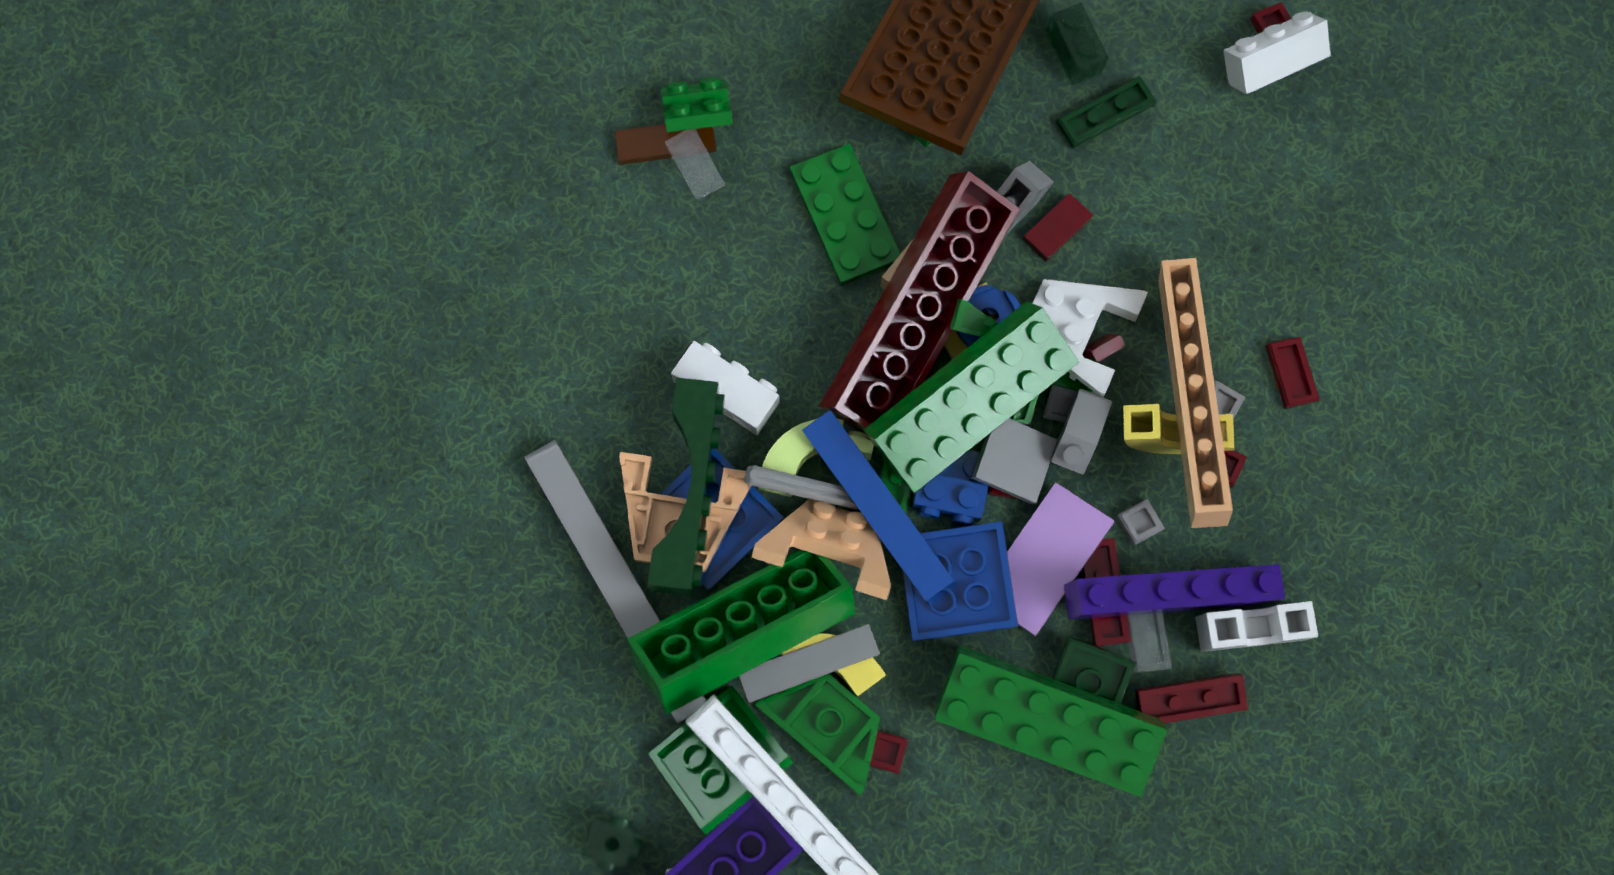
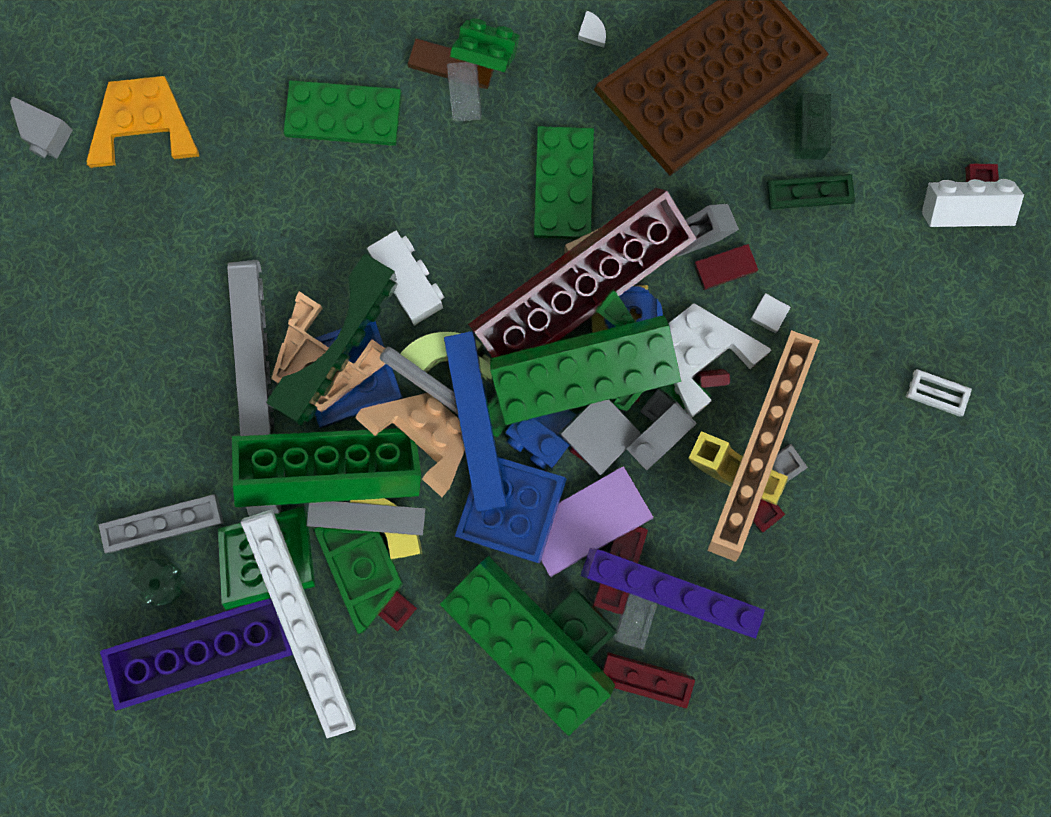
camera: 25 degrees right, 5 degrees up
(244, 404) = (40, 129): none -> light grey slope
(343, 336) = (138, 109): none -> light orange wing
(571, 243) = (342, 113): none -> green plate
(581, 778) = (160, 523): none -> light grey plate
(799, 43) = (592, 30): none -> white tile
(1127, 254) = (770, 313): none -> white tile
(1140, 522) = (676, 526): light grey tile -> none
(1256, 627) = (724, 649): white arch -> none
(1292, 372) = (855, 465): dark red tile -> none
(1311, 262) = (914, 385): none -> white tile

